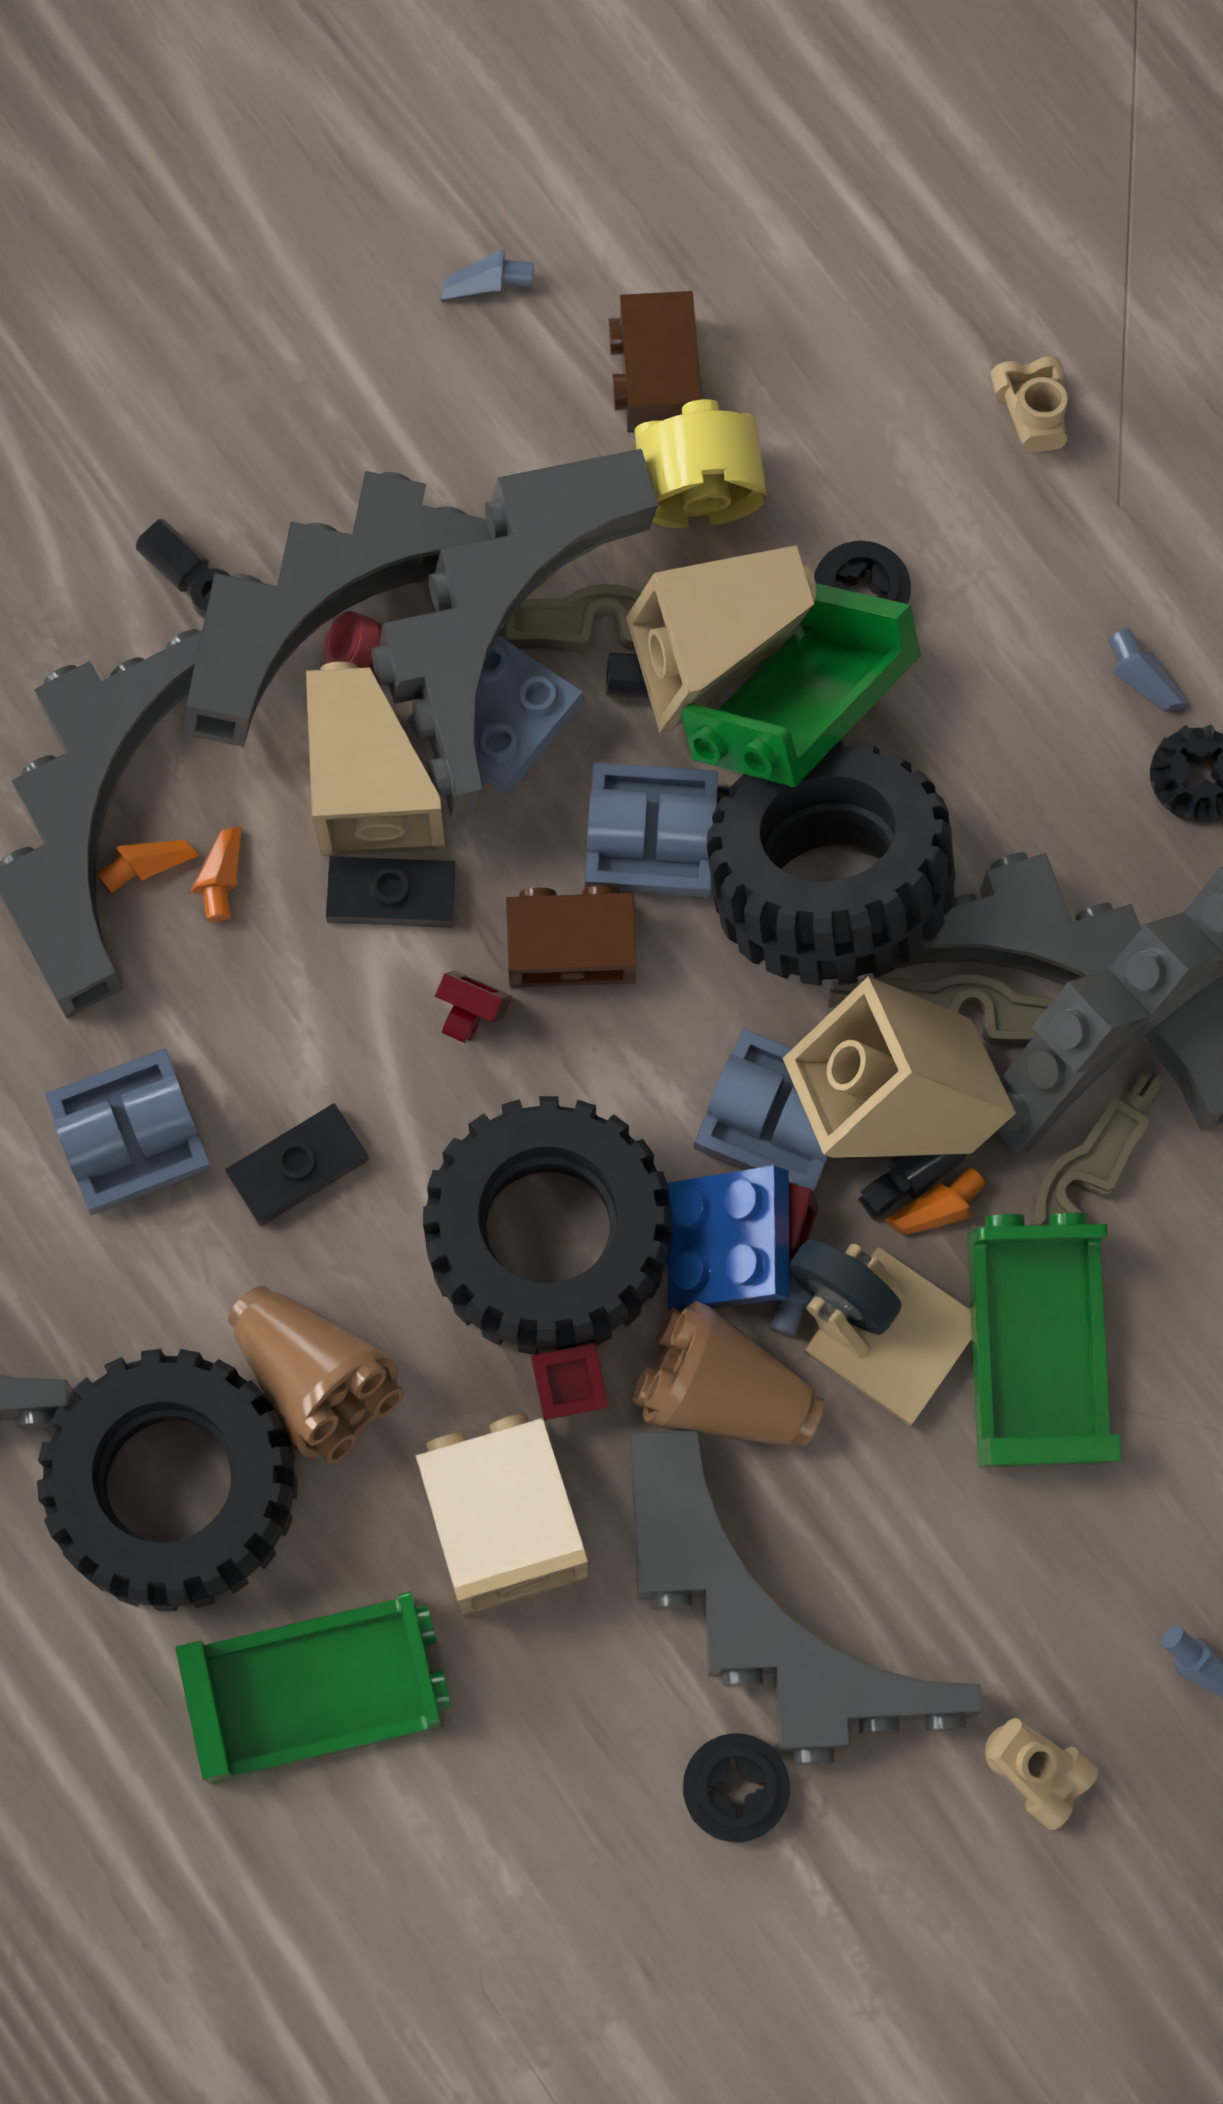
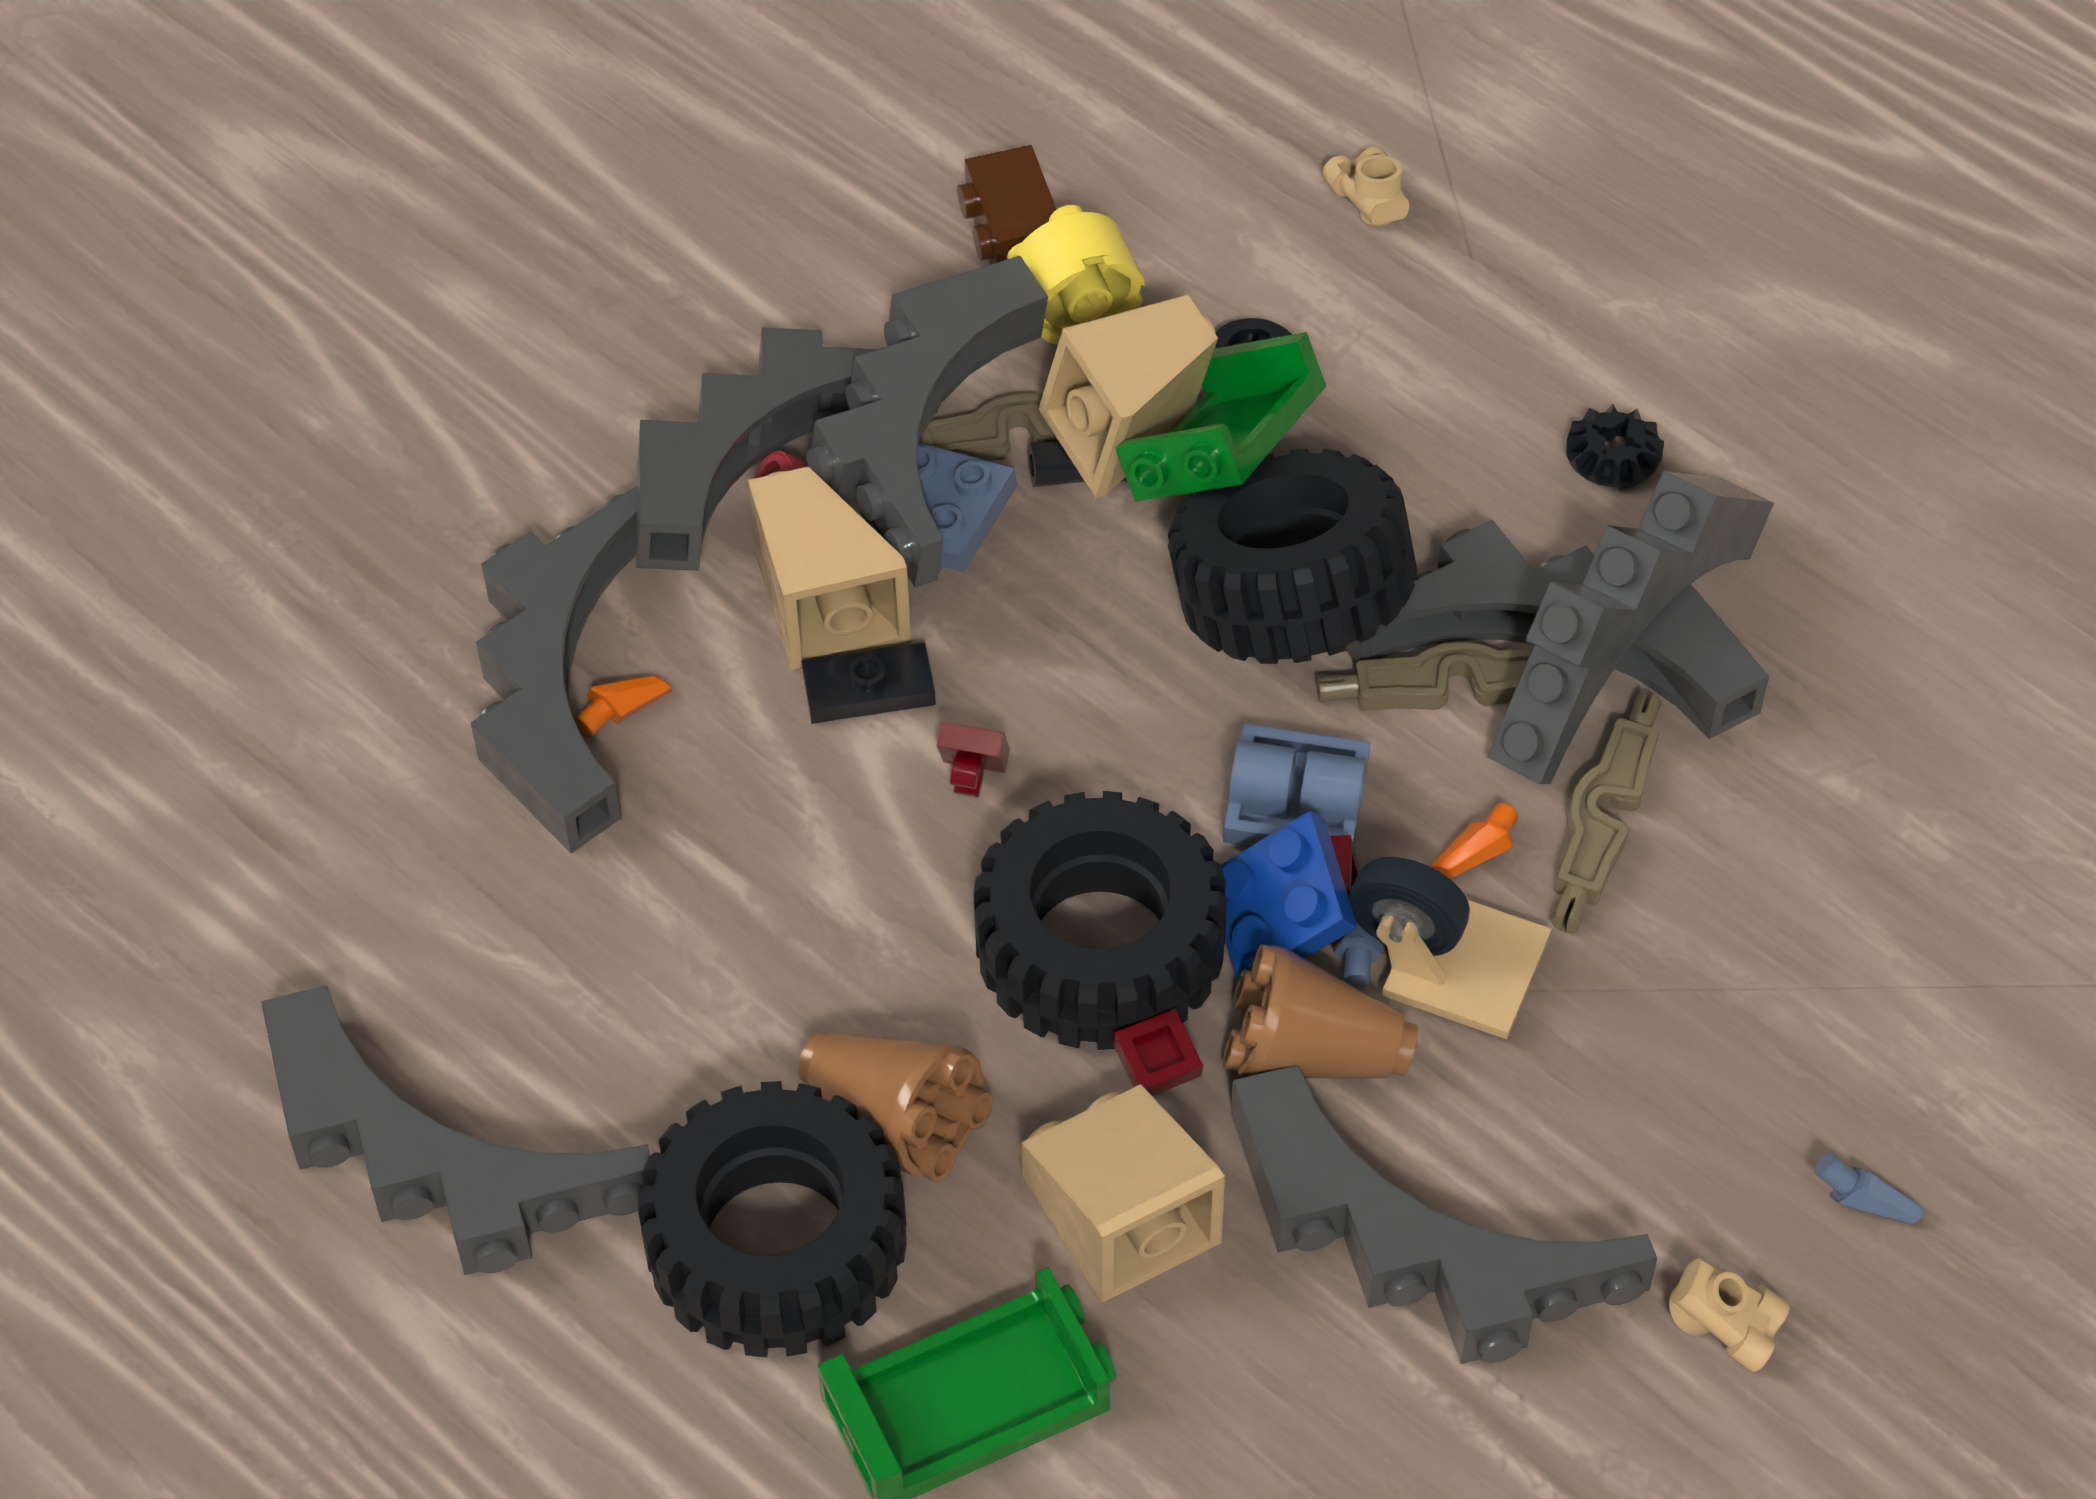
camera: 10 degrees left, 20 degrees down
(127, 1132) = (659, 928): sand blue plate -> none
(178, 562) = (596, 452): black bar -> none
(219, 875) = (696, 701): orange bar -> none
(297, 1164) = (833, 930): black plate -> none
(488, 277) = (834, 181): sand blue bar -> none
(571, 938) = (1056, 683): reddish brown brick -> none
(650, 829) = (1109, 582): sand blue plate -> none
(756, 1763) = (1443, 1373): black gear -> none
(896, 1078) = (1405, 719): tan slope -> none
(906, 1176) = (1445, 815): black bar -> none
(1039, 1342) = (1612, 932): green panel -> none
(1145, 673) = (1537, 377): sand blue bar -> none

